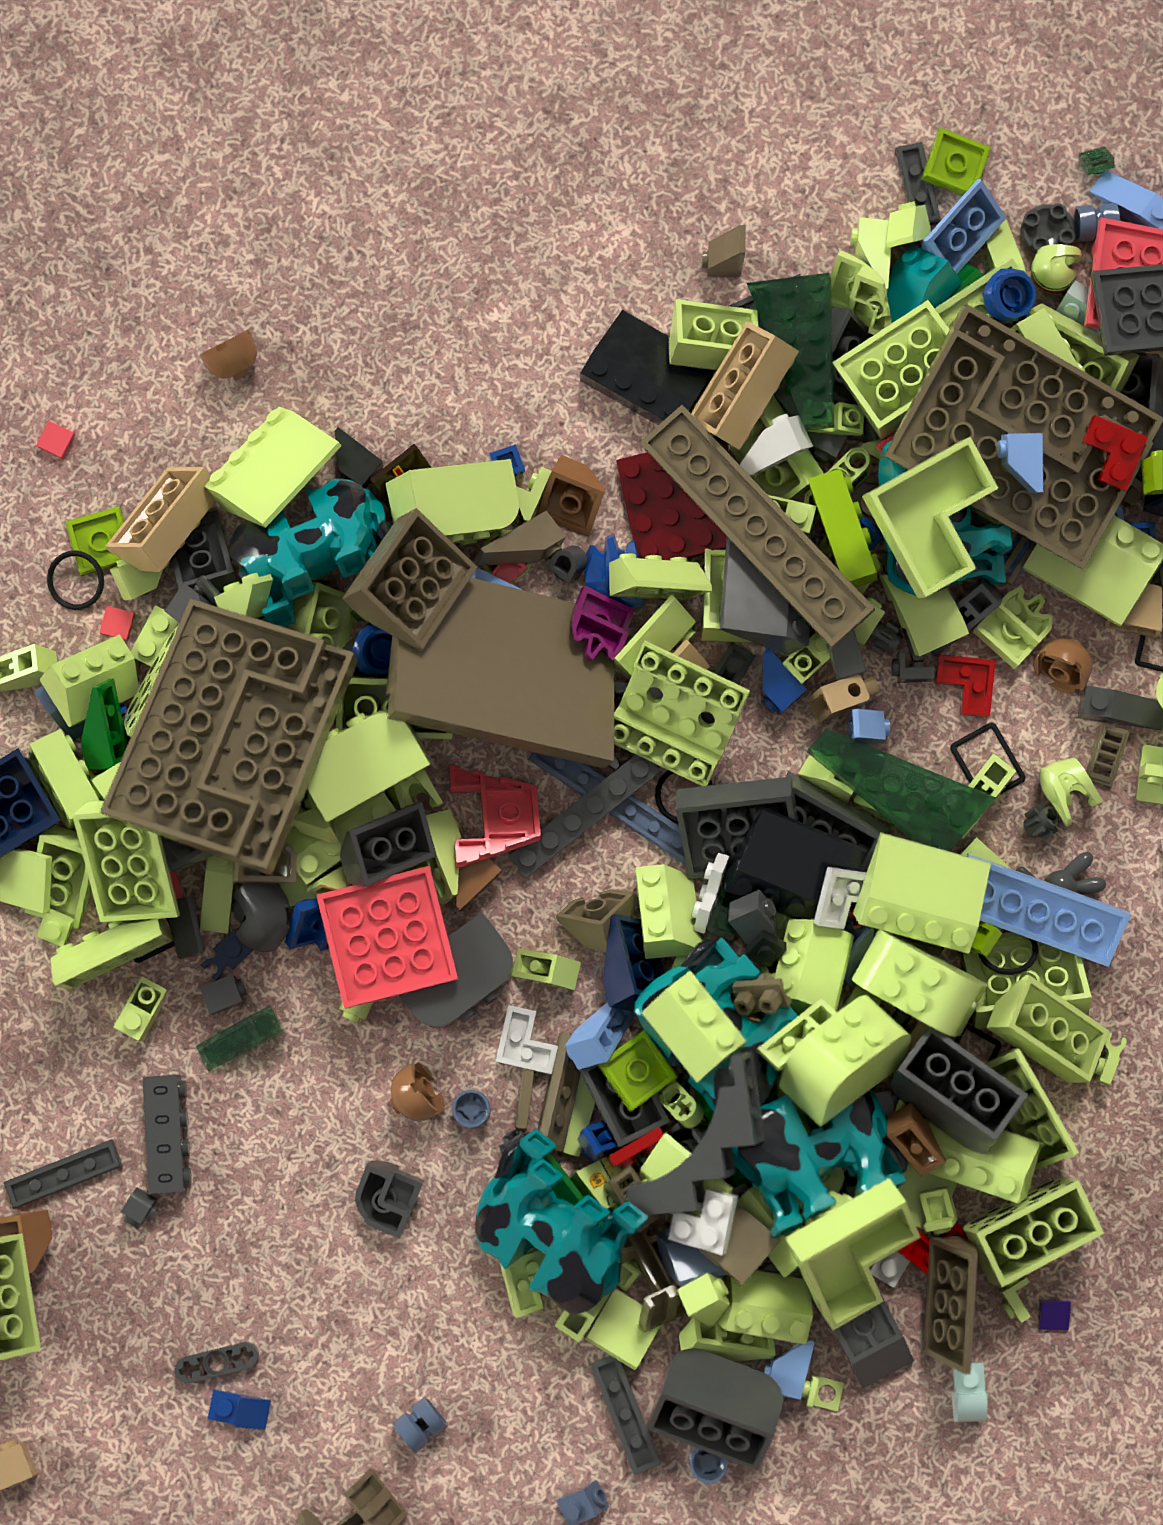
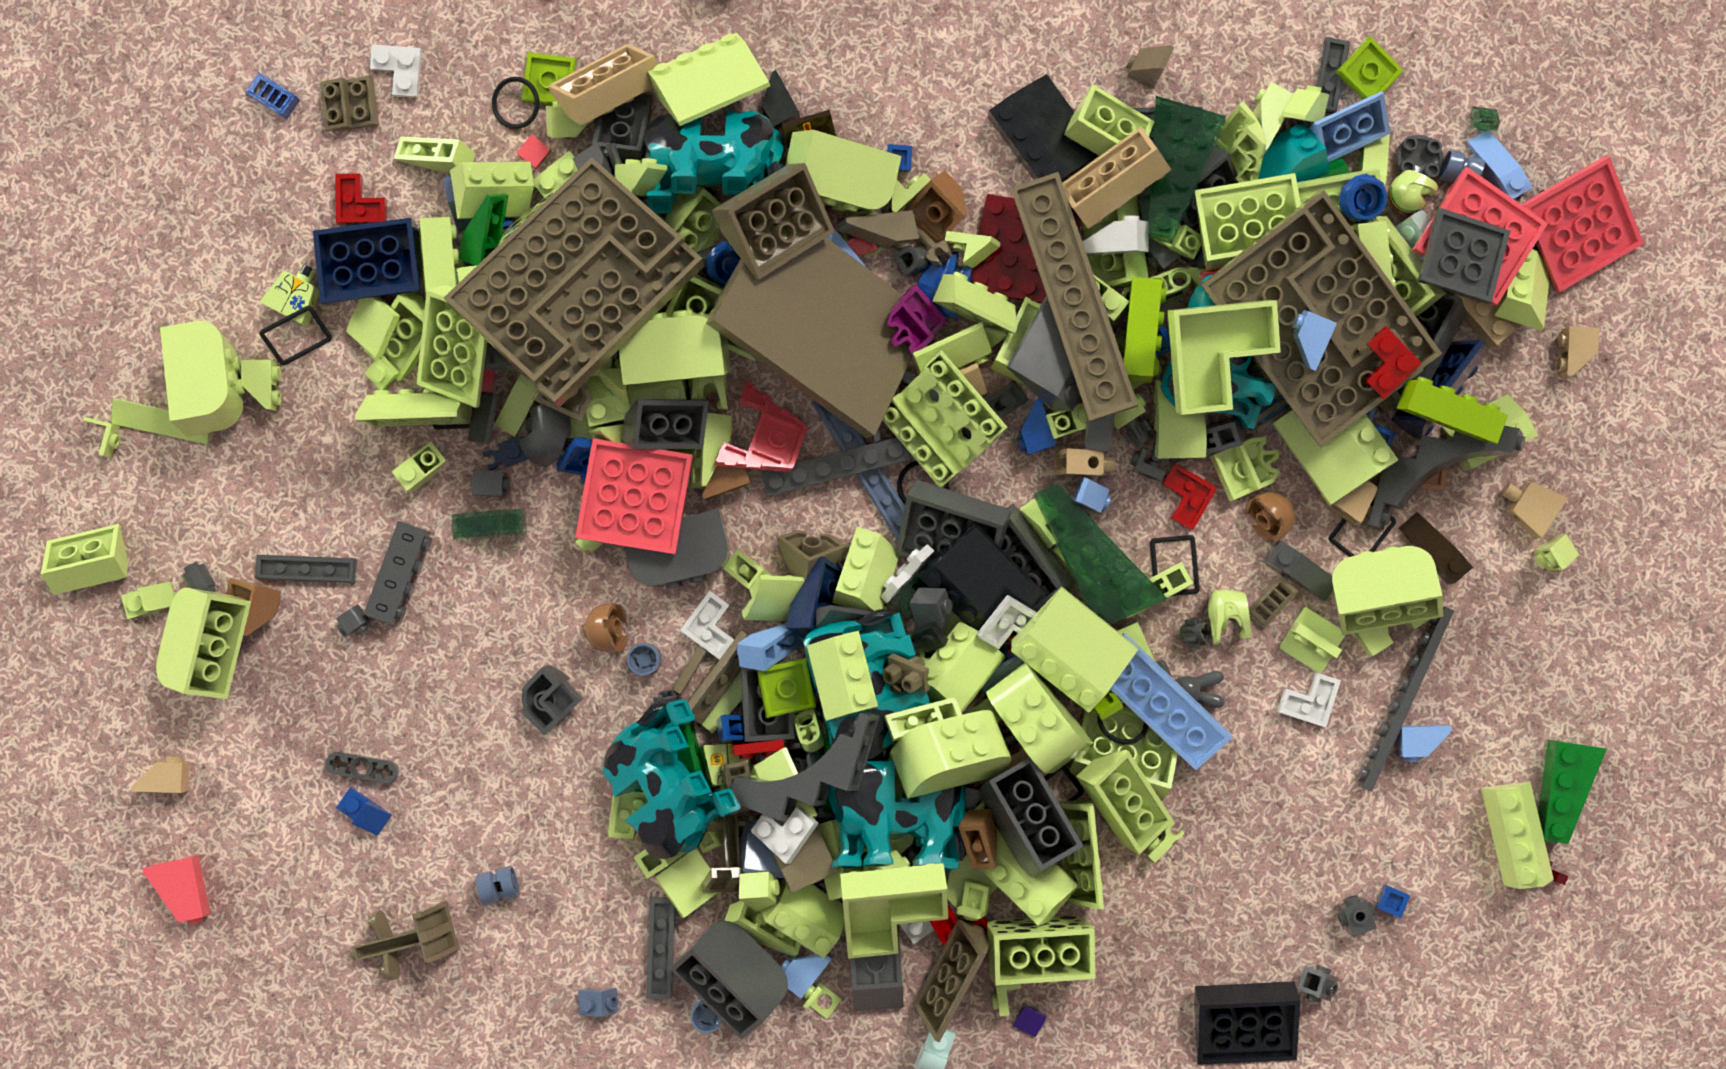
camera: 25 degrees right, 5 degrees up
(579, 982) = (772, 597): none -> yellowish green slope
(586, 540) = (934, 248): none -> dark tan bar
(628, 519) = (975, 246): none -> yellowish green slope
(657, 966) = (833, 614): none -> dark grey slope
(691, 603) = (994, 336): none -> yellowish green slope

